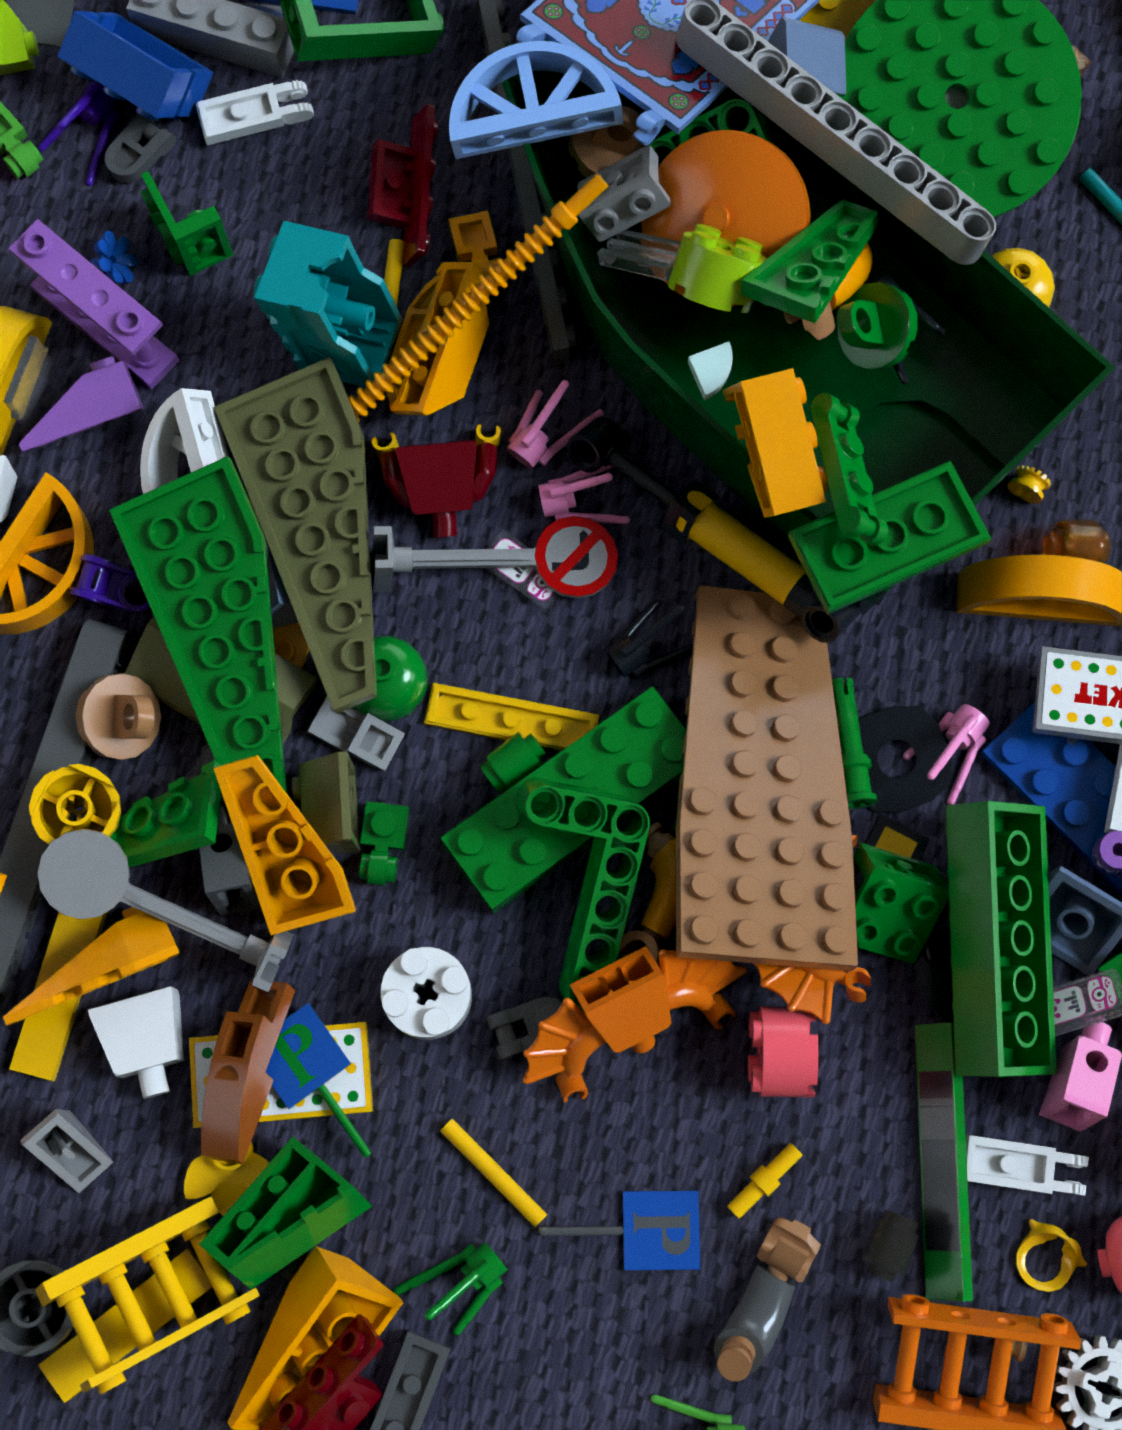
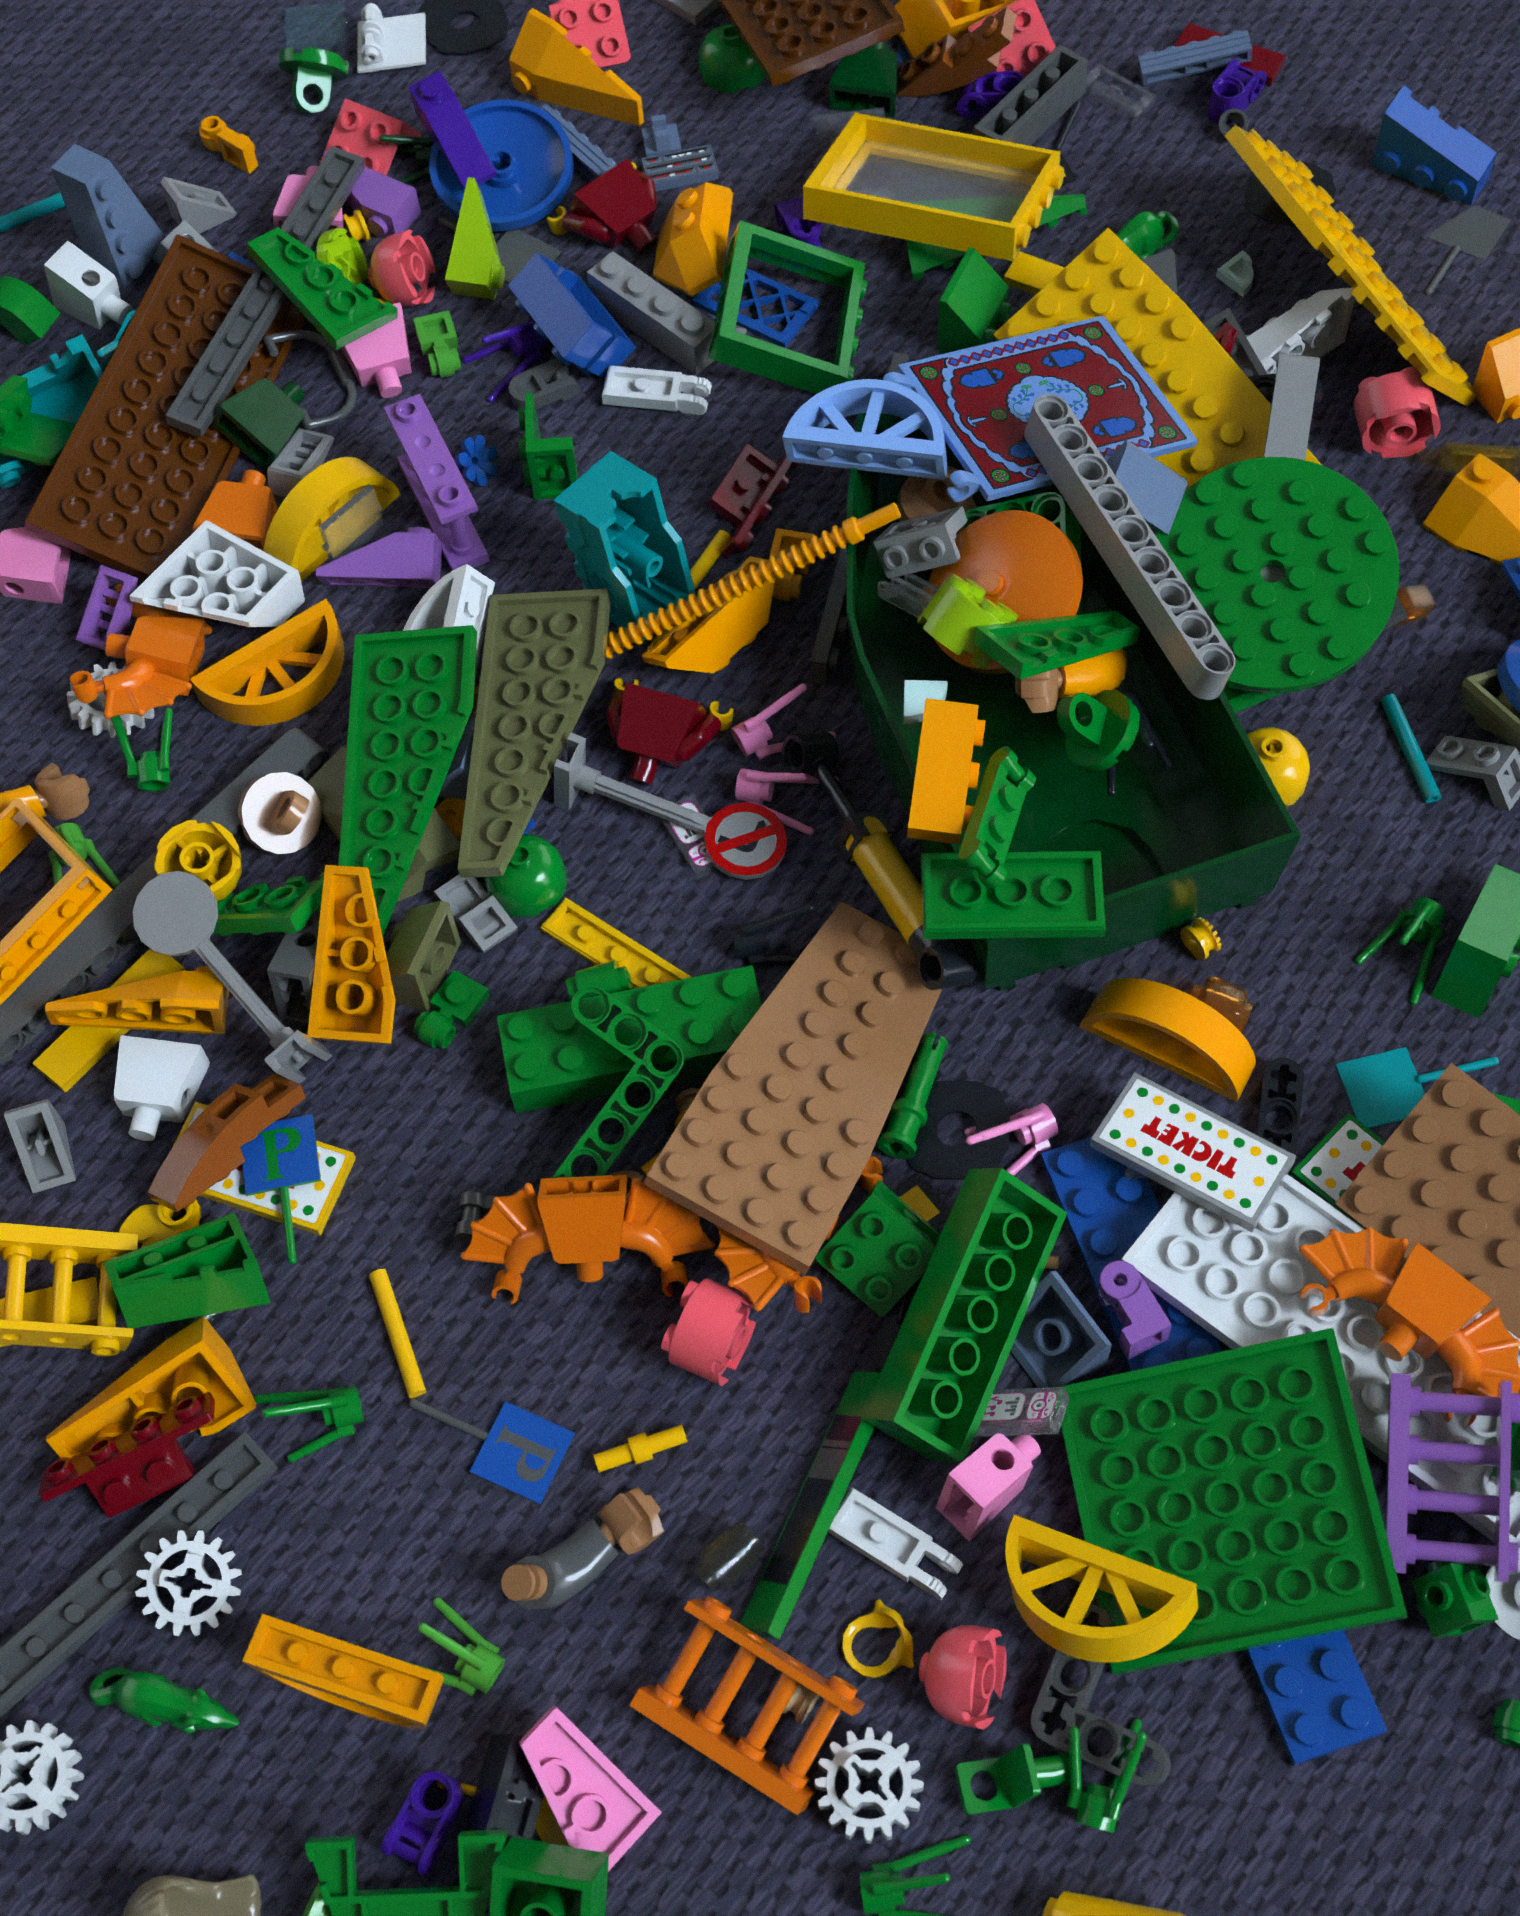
camera: 30 degrees right, 15 degrees down
(109, 584) = (326, 705): dark purple piece -> none
(417, 969) = (395, 1143): white brick -> none

